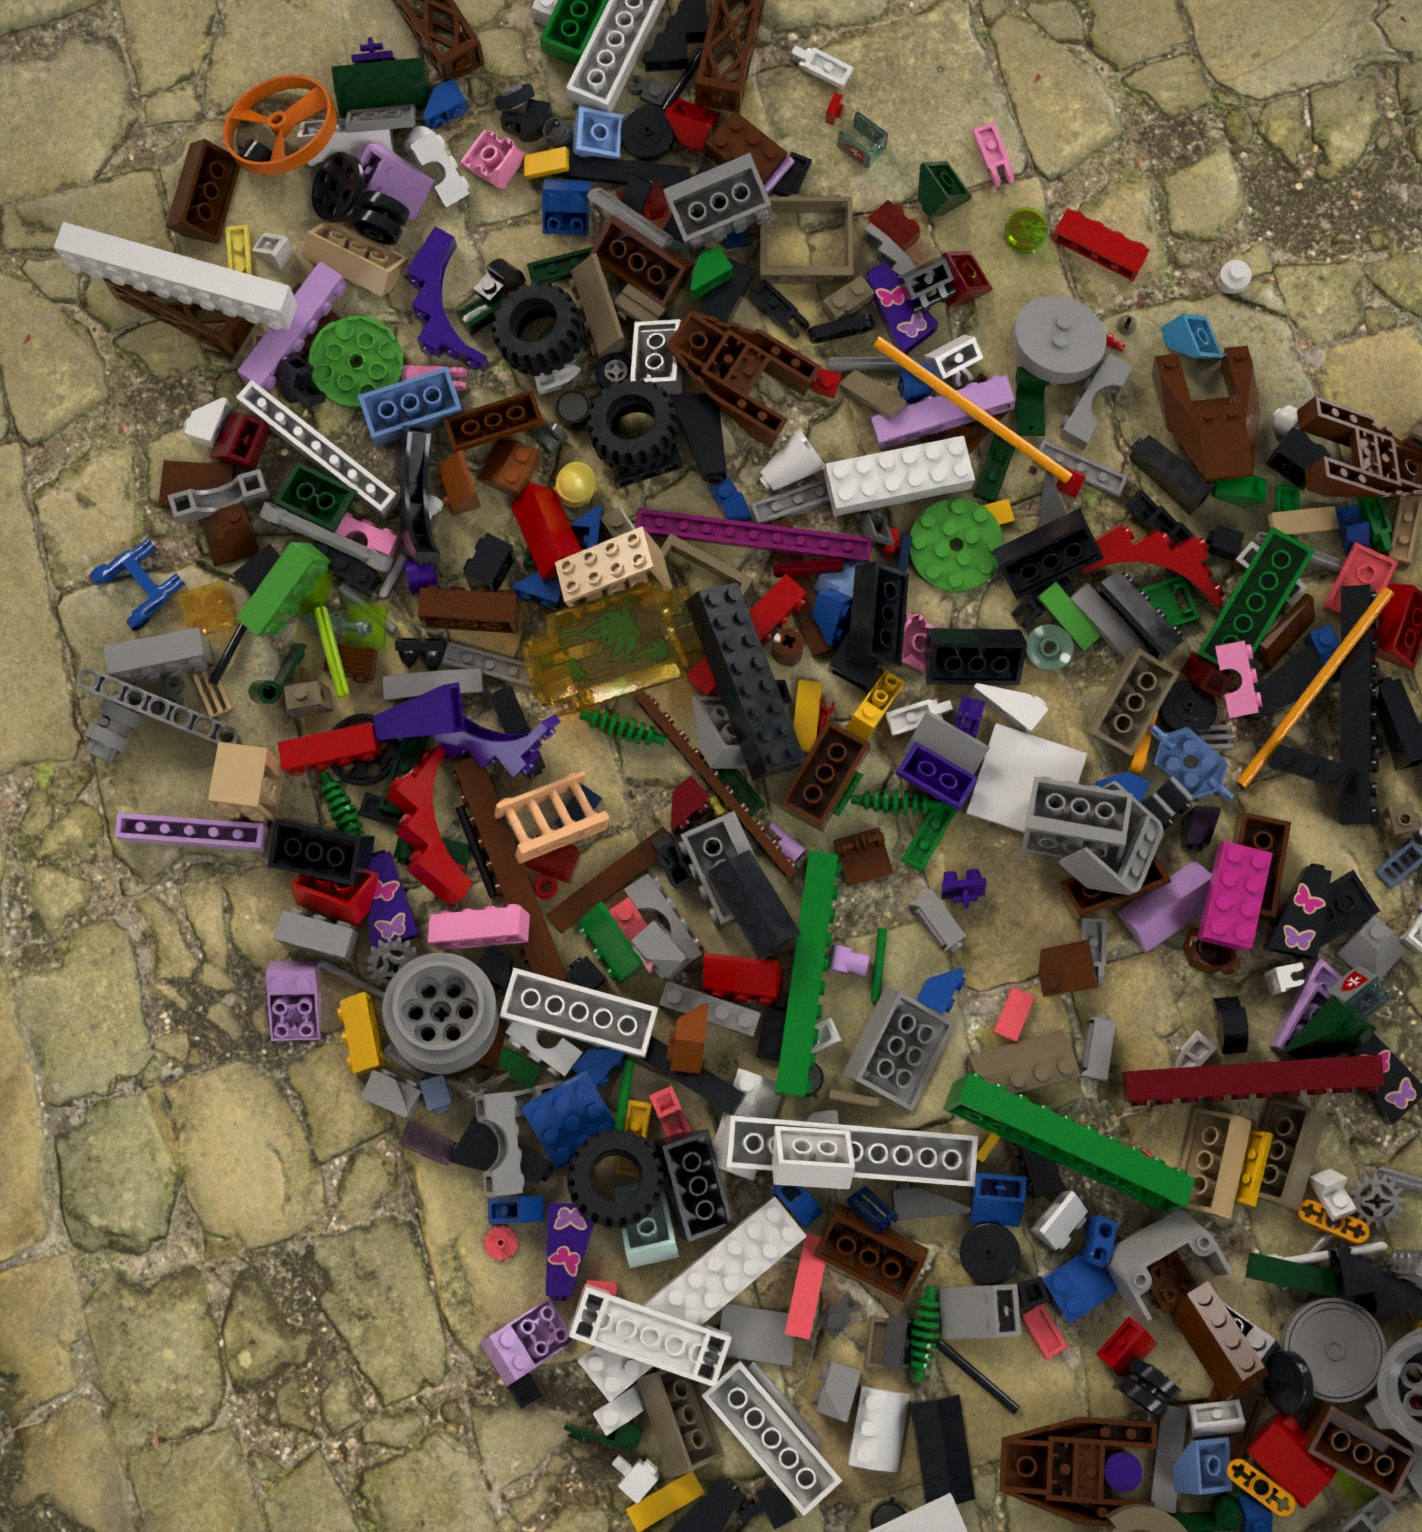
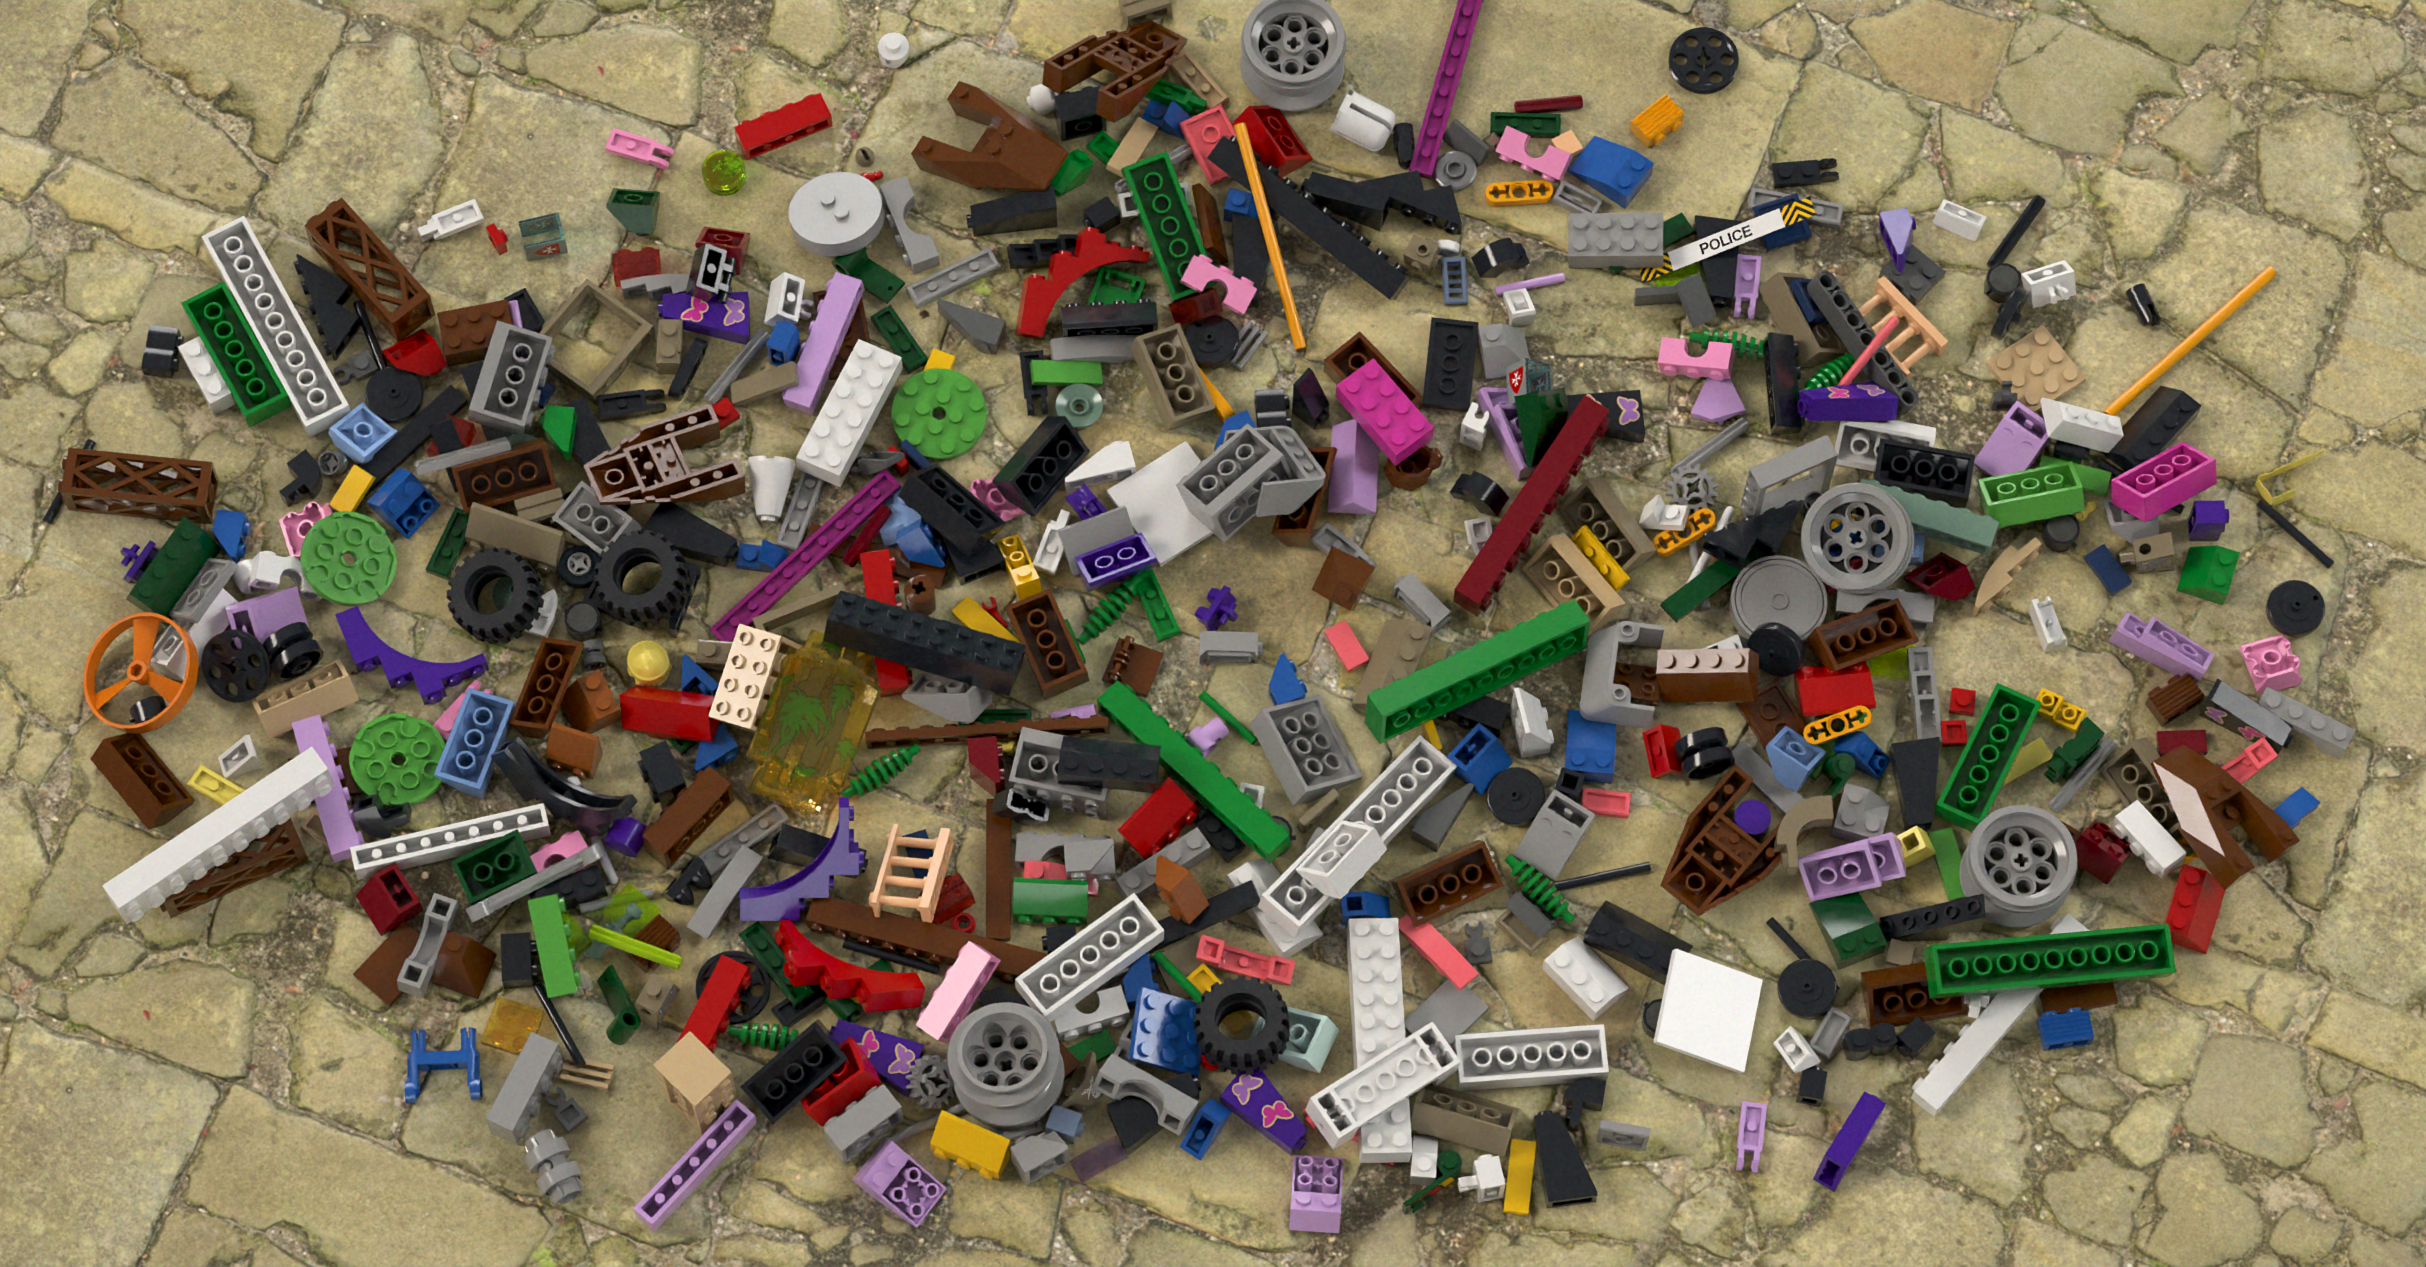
camera: 55 degrees left, 10 degrees down
(145, 707) = (564, 1123): light grey beam -> none
(207, 422) = (350, 916): white slope -> none
(427, 714) = (751, 908): dark purple slope -> none
(461, 201) = (331, 576): none -> bright green plate
(478, 314) = (436, 632): dark green brick -> none
(499, 279) = (426, 599): black brick -> none
(501, 1242) = (1222, 1161): coral piece -> none
(514, 97) = (274, 474): black wheel -> none
(525, 1391) = (1353, 1224): black tile -> none
(694, 1184) = (1297, 973): black slope -> none
(836, 1390) = (1532, 981): light grey slope -> none
(871, 1220) = (1415, 860): clear blue tile -> none
(972, 409) = (843, 316): light orange piece -> none
(1047, 553) = (1005, 348): black slope -> none
(1073, 485) = (958, 291): red plate -> none
(1099, 1240) = (1567, 708): blue leg -> none
(1192, 337) = (916, 116): dark azure slope -> none
(1200, 779) = (1273, 369): medium blue plate -> none
(1216, 1418) = (1765, 723): white slope -> none
(1302, 916) = (1438, 378): black slope -> none
(1313, 768) = (1330, 285): black brick -> none

